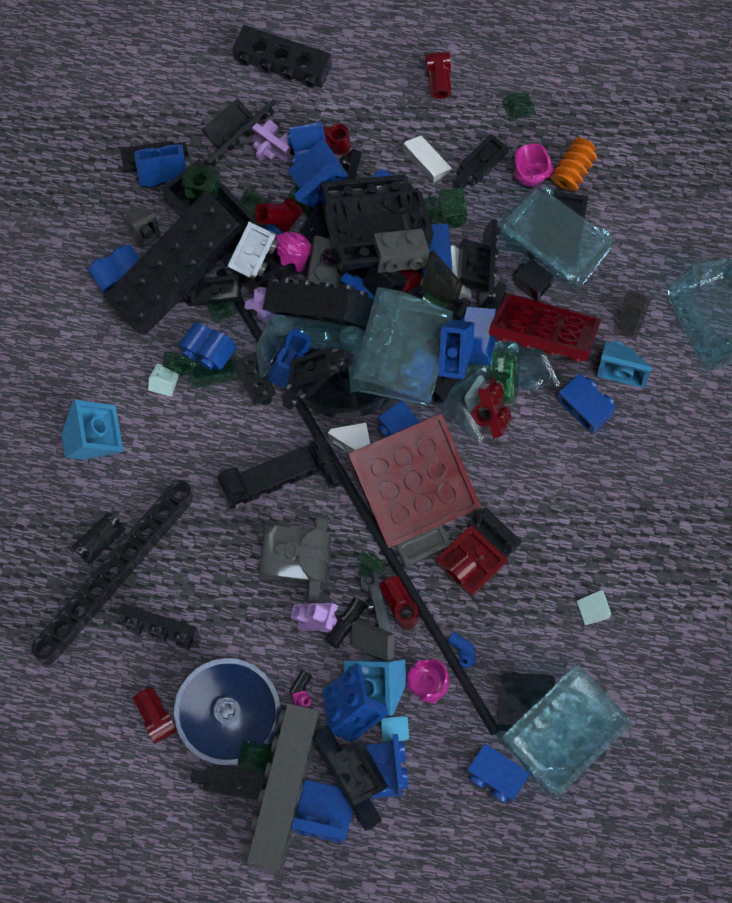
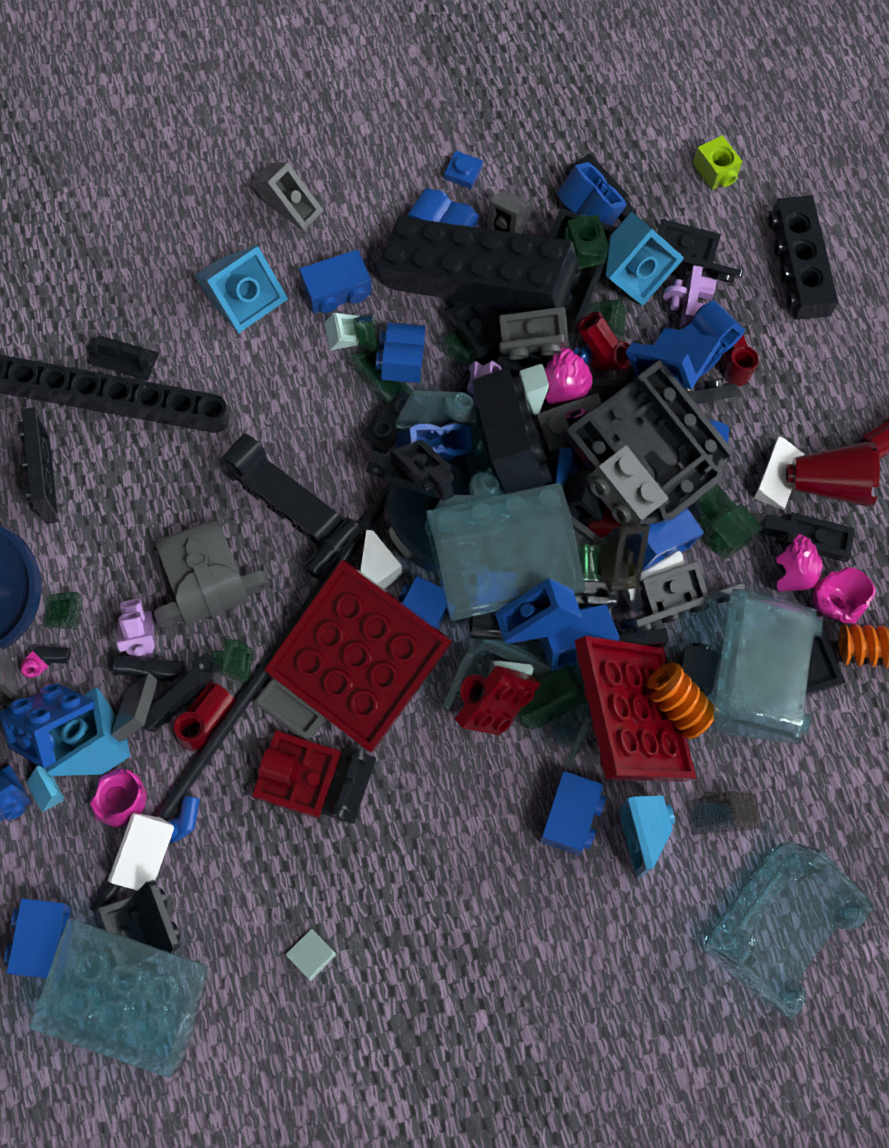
camera: 55 degrees right, 0 degrees up
(33, 364) = (287, 194): none -> dark grey slope
(82, 238) = (463, 169): none -> blue plate
(125, 365) = (336, 282): none -> blue brick
(174, 63) = (717, 153): none -> lime brick
(229, 156) = (639, 259): none -> dark azure slope
(272, 662) = (63, 610): none -> clear green slope
(289, 269) = (534, 386): none -> light aqua slope
(451, 120) = (838, 473): none -> dark red cone
(475, 680) = (141, 851): none -> white slope
(499, 177) = (801, 565): none -> dark pink hair
(551, 297) = (681, 700): none -> orange piece

